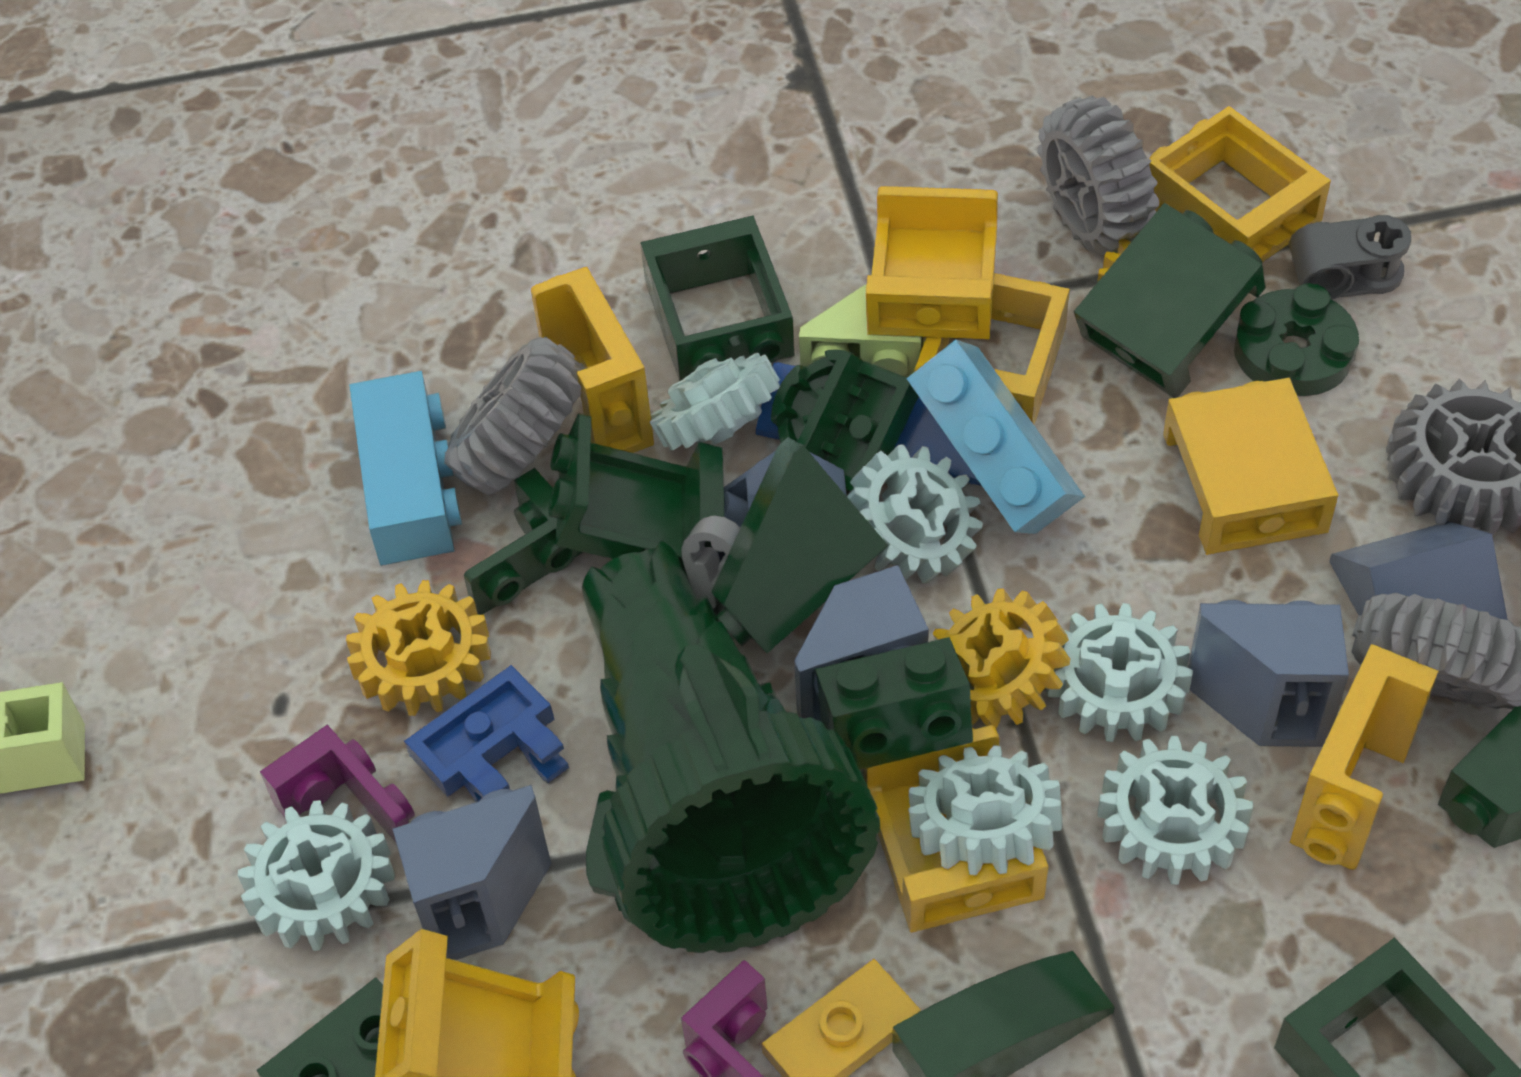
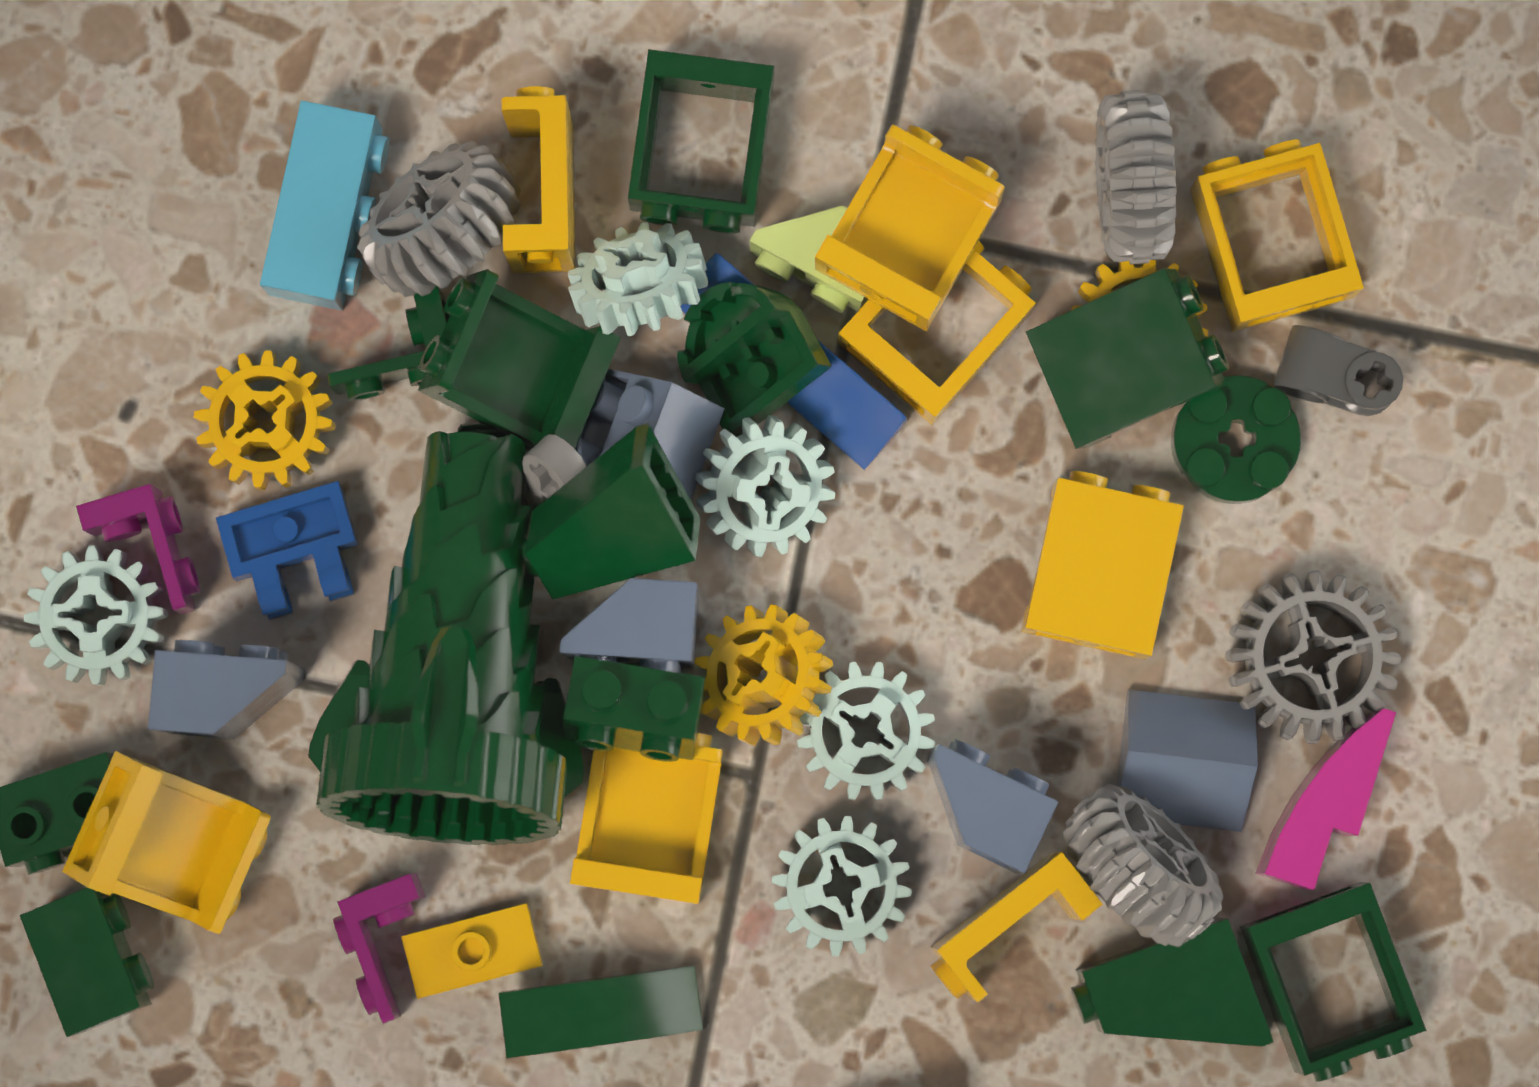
camera: 20 degrees right, 30 degrees up
(985, 810) = (647, 843): light aqua gear -> none
(995, 437) = (871, 453): medium azure brick -> none

